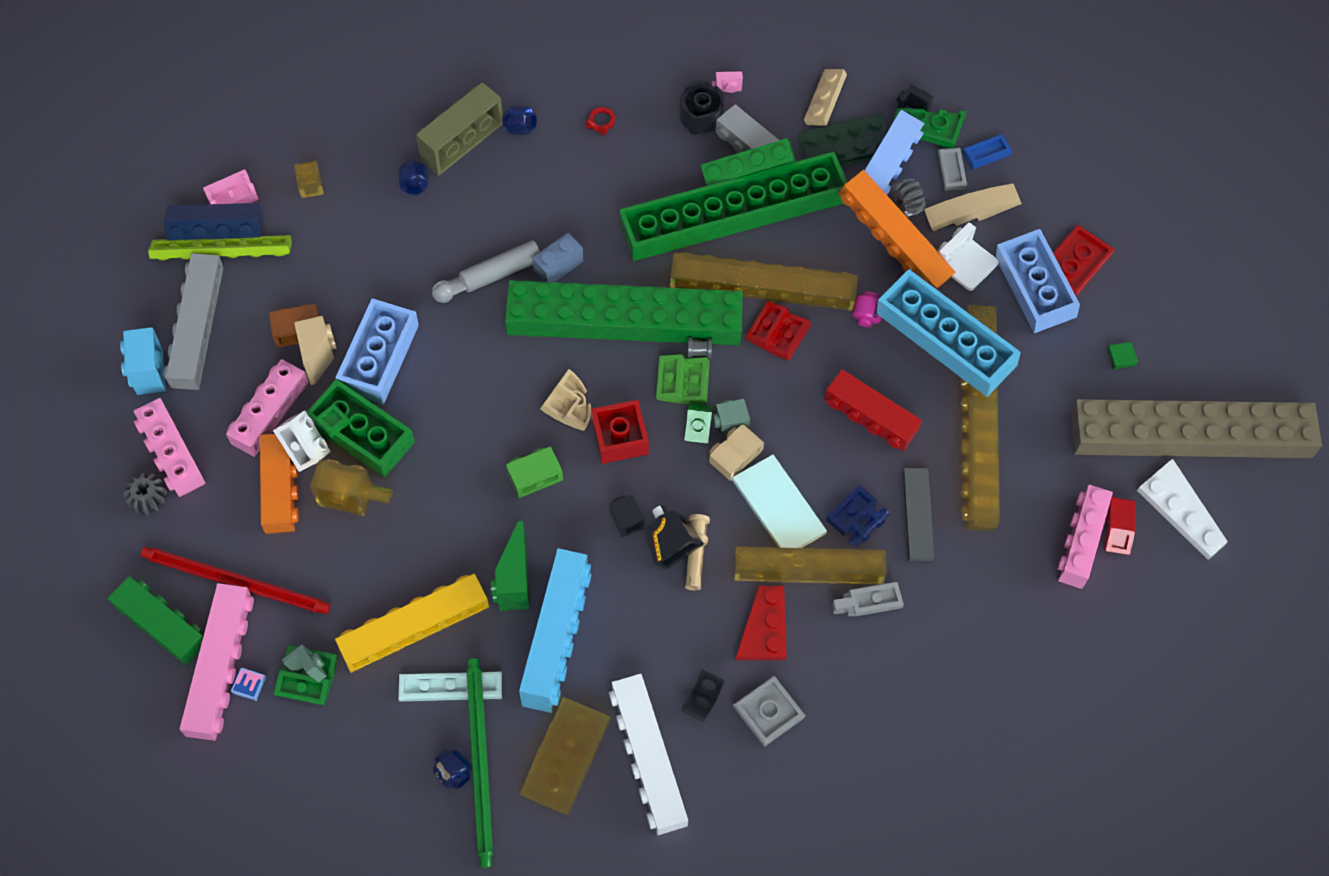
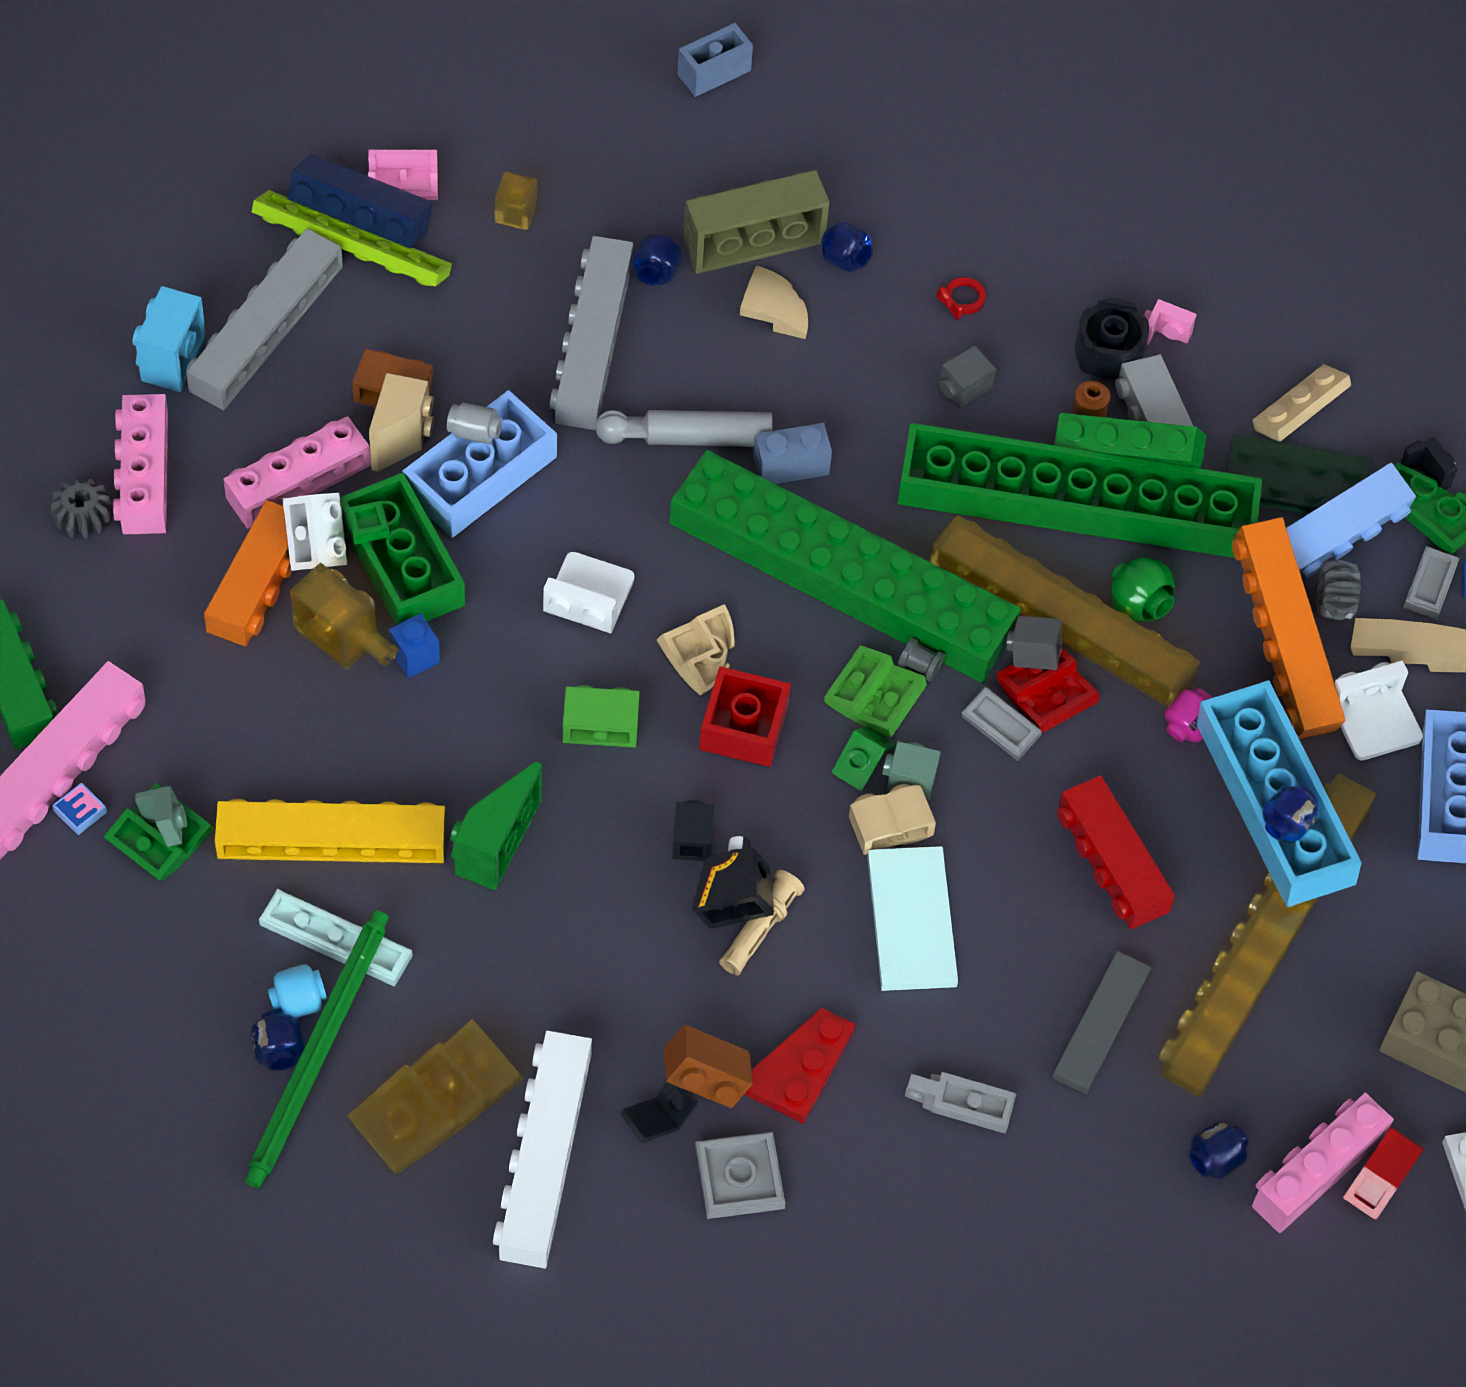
camera: 25 degrees right, 5 degrees down
(230, 578) = (123, 659): red piece -> none
(364, 328) = (474, 422): none -> light grey brick
(380, 41) = (715, 59): none -> sand blue brick
(400, 239) = (593, 332): none -> light grey brick
(401, 481) = (416, 645): none -> blue brick
(448, 732) = (297, 991): none -> medium azure head
(484, 398) = (588, 591): none -> white bracket
(495, 172) = (775, 301): none -> tan brick
(554, 631) = (508, 929): medium azure brick -> none
(631, 166) = (966, 376): none -> dark grey brick
(711, 149) = (1091, 399): none -> dark orange brick
(718, 656) = (707, 1066): none -> dark orange brick
(760, 307) = (1036, 642): none -> dark grey brick
(764, 364) = (1001, 723): none -> light grey tile
(800, 247) = (1140, 586): none -> green plant
(809, 565) = (905, 1013): clear yellow brick -> none
(852, 510) = (1010, 972): clear blue plate -> none
(968, 342) = (1290, 813): none -> clear blue head
(1025, 557) = (1218, 1150): none -> clear blue head

